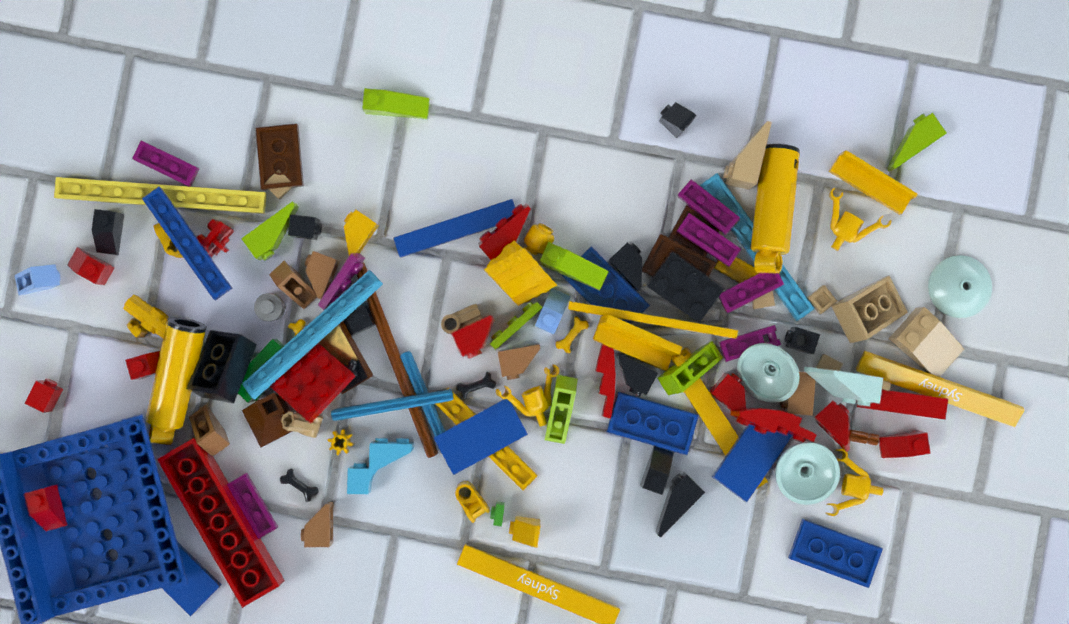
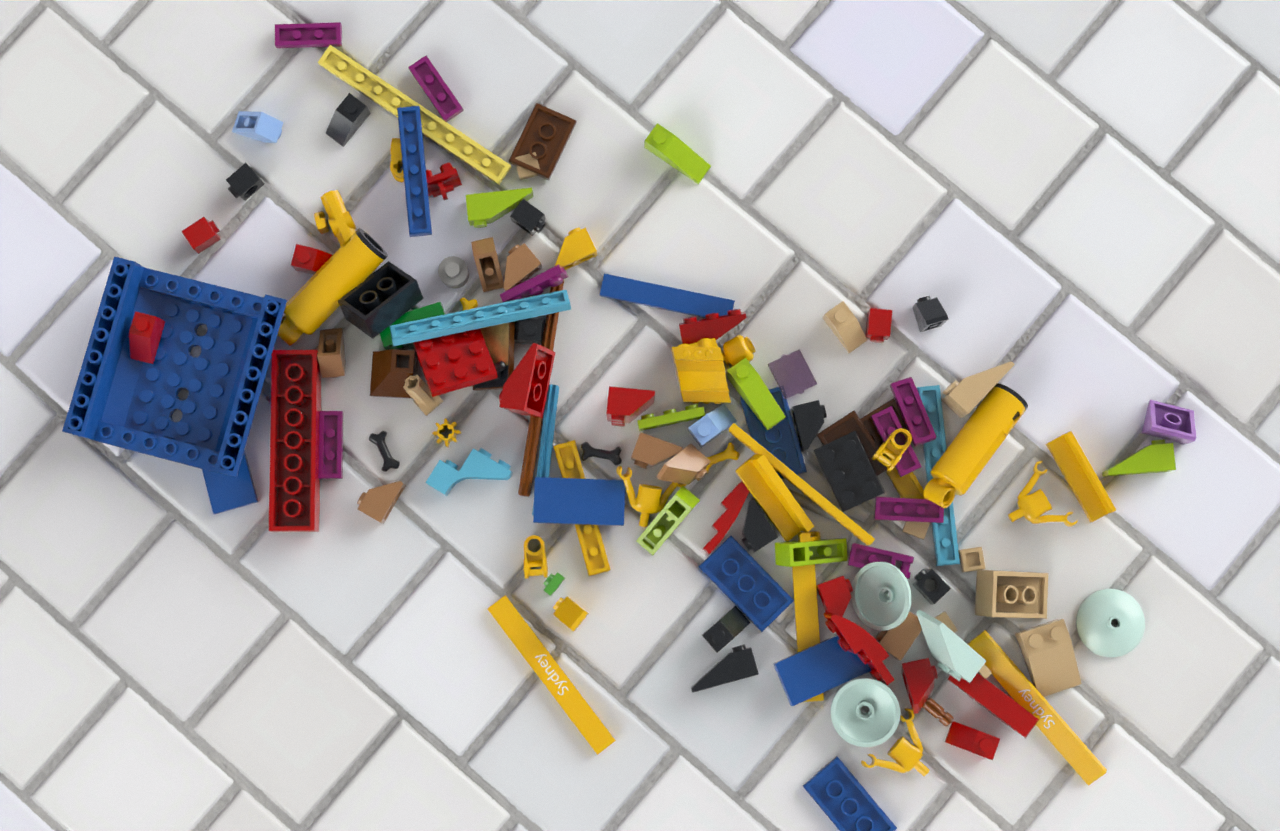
camera: 30 degrees right, 5 degrees down
(33, 179) = (308, 35): none -> magenta plate
(53, 332) = (244, 182): none -> black brick
(90, 267) = (312, 142): red slope -> none
(383, 364) = (529, 383): none -> red slope
(392, 405) = (514, 425): dark azure axle -> none
(463, 318) = (623, 381): tan piece -> none
(550, 359) = (685, 466): none -> medium nougat slope
(593, 232) = (792, 374): none -> clear purple piece
(614, 169) = (845, 326): none -> tan slope
(640, 151) = (878, 324): none -> red brick
(710, 250) = (892, 450): none -> yellow piece
(919, 96) = (1169, 422): none -> medium lavender slope

